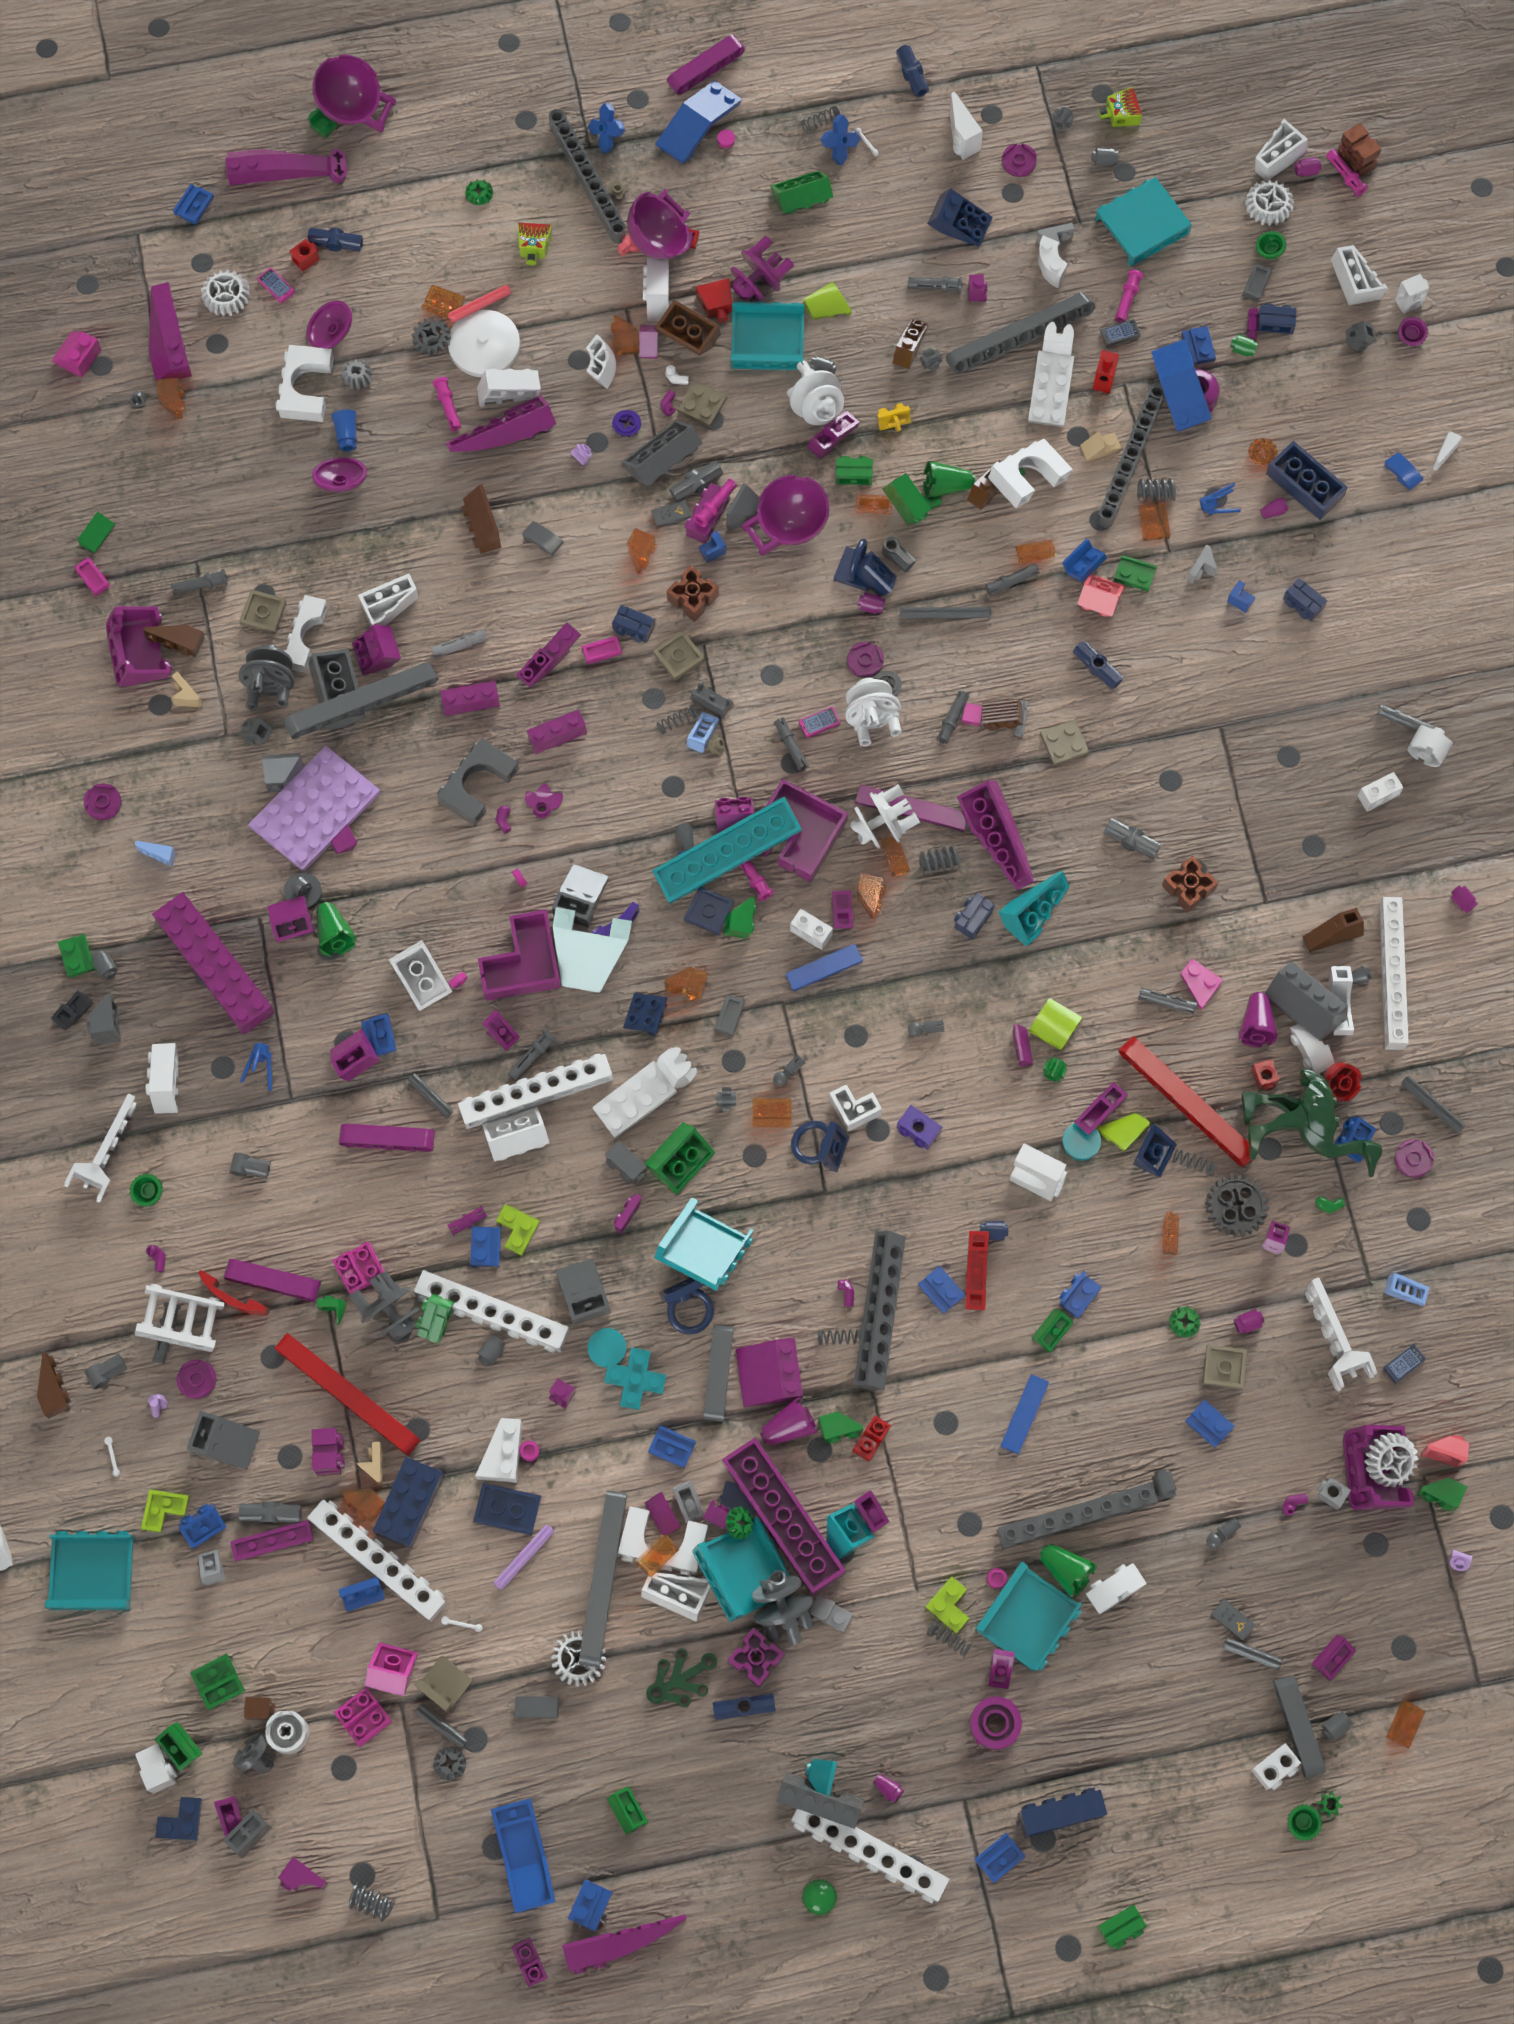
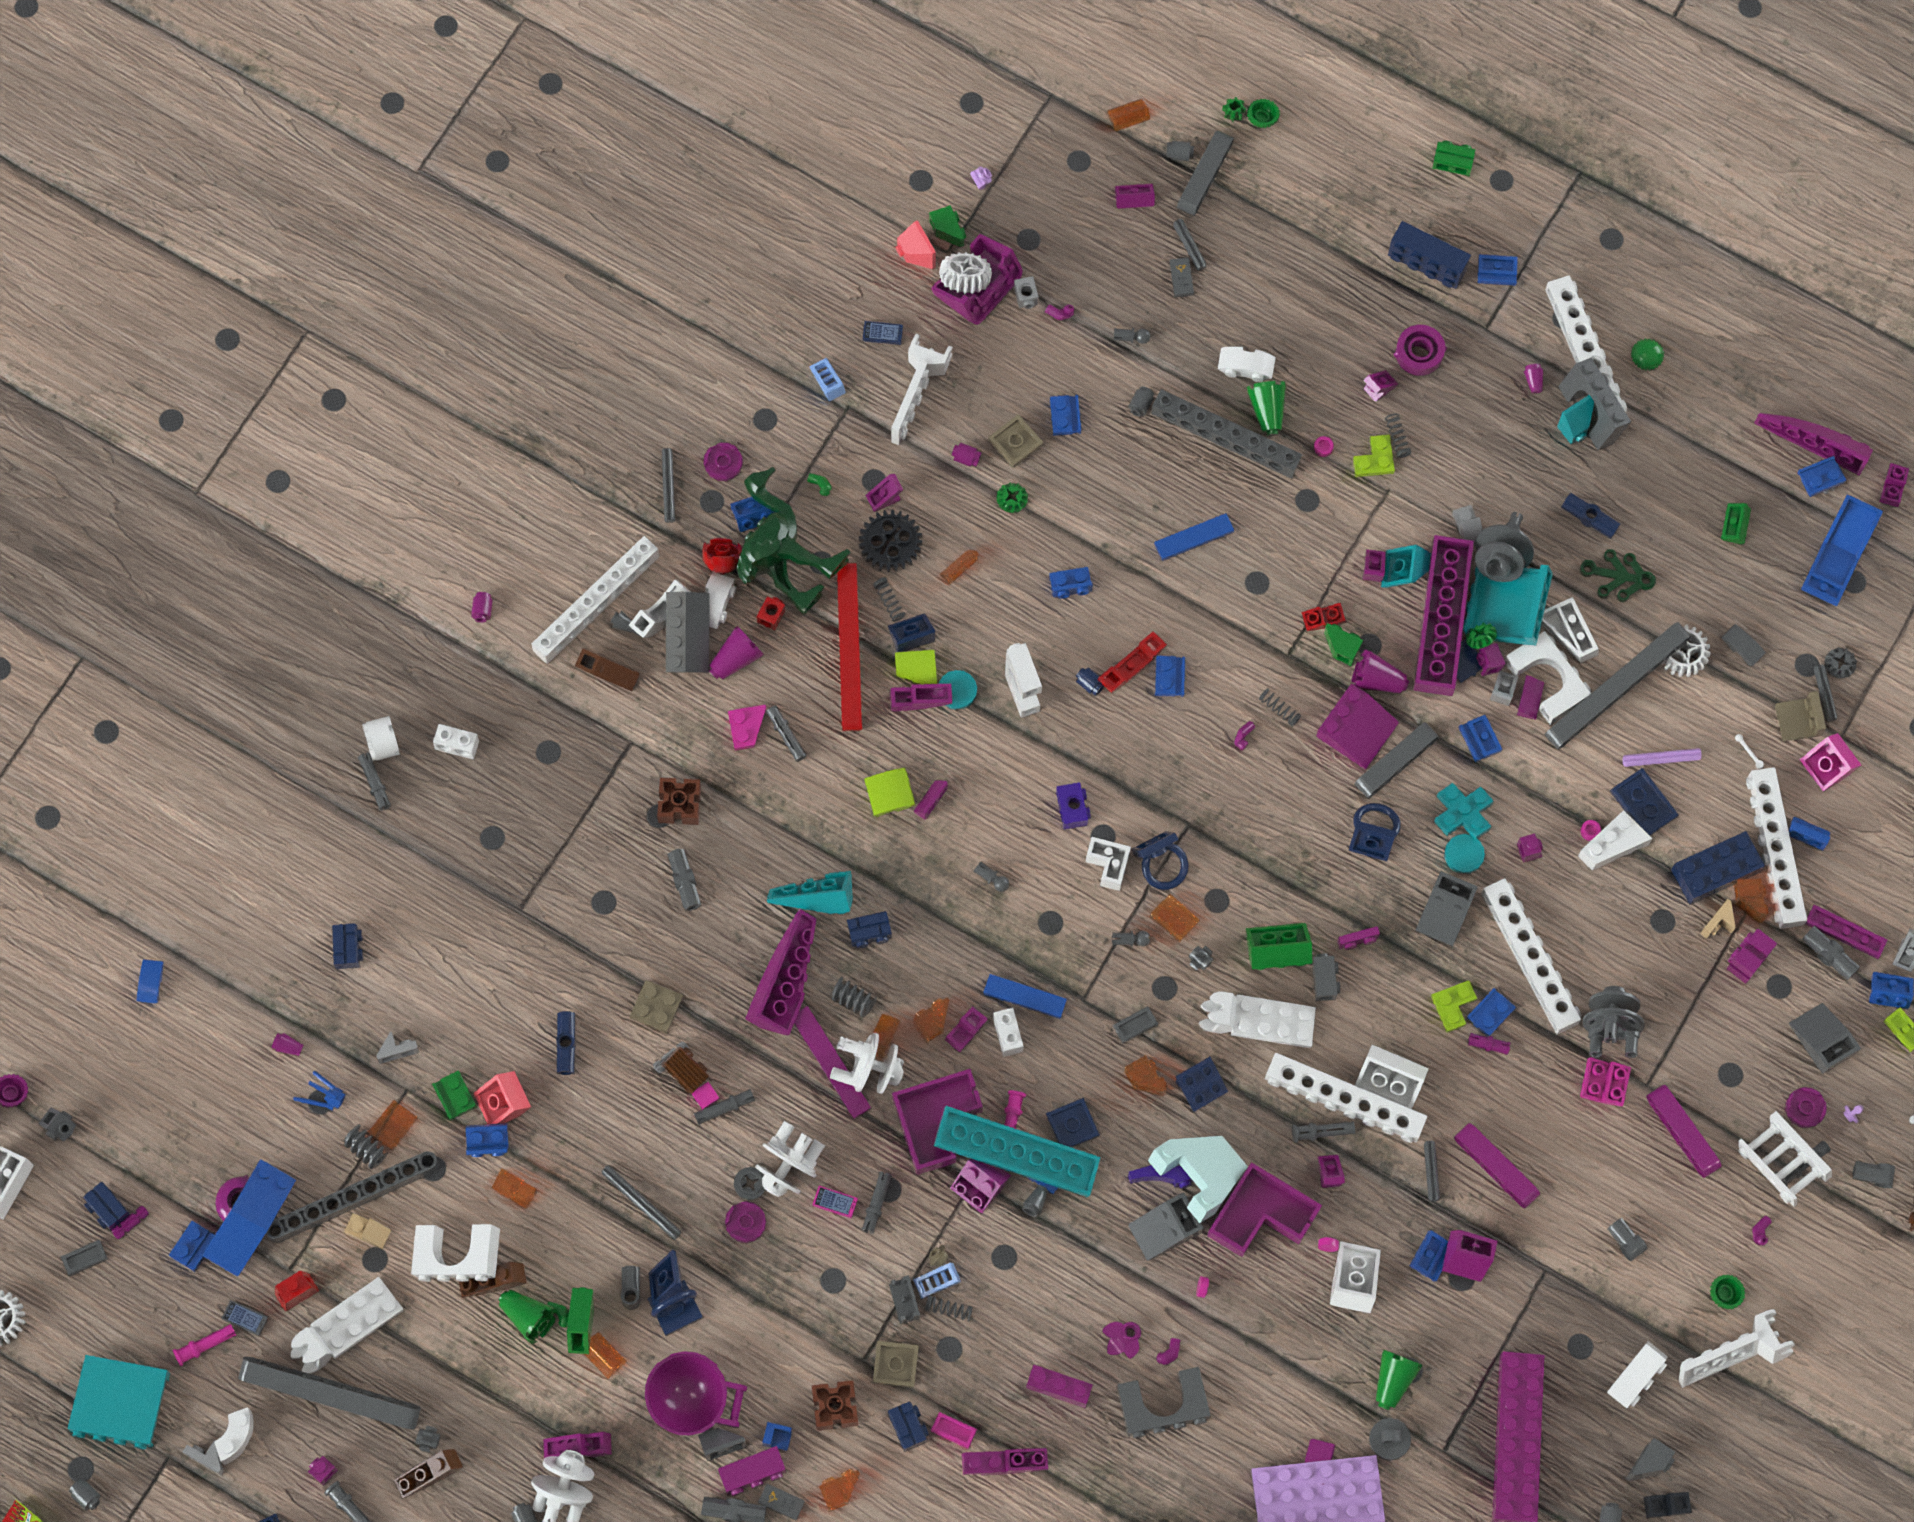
camera: 140 degrees left, 0 degrees up
(252, 1307) = (1717, 1121): red slope -> none
(259, 1054) = (1541, 1327): blue plant -> none
(290, 919) = (1424, 1415): magenta slope -> none
(328, 1303) = (1652, 1070): green plate -> none
(347, 1394) = (1697, 991): red beam -> none
(363, 1717) = (1879, 748): dark pink slope -> none
(435, 1318) = (1581, 984): green brick -> none
(470, 698) = (1105, 1482): magenta brick -> none
(490, 1350) = (1557, 927): dark grey brick -> none
(657, 1555) = (1564, 665): clear orange slope -> none
(702, 1247) = (1326, 853): panel -> none
(710, 508) = (751, 1463): dark pink pin -> none
(739, 921) = (1056, 1091): green slope -> none
(743, 1658) = (1558, 528): magenta brick -> none
(854, 471) = (593, 1396): green brick -> none
(871, 603) = (694, 1264): magenta brick -> none
(879, 1311) = (1233, 697): dark grey brick -> none
(893, 418) = (520, 1419): yellow hips -> none
(1005, 582) = (559, 1180): dark grey pin -> none
(1029, 1618) = (1326, 399): teal panel -> none
(1052, 1329) = (1115, 577): green slope -> none
(1054, 1069) = (925, 756): green gear -> none
(1240, 598) = (393, 996): blue panel -> none
(1243, 345) = (158, 1208): green brick -> none
(1268, 447) = (243, 1093): clear orange gear -> none
(1271, 245) = (38, 1277): green hat -> none
(1273, 1763) = (1247, 167): white brick -> none
(1306, 480) = (238, 1040): dark blue brick -> none
(1450, 444) = (96, 966): white slope -> none

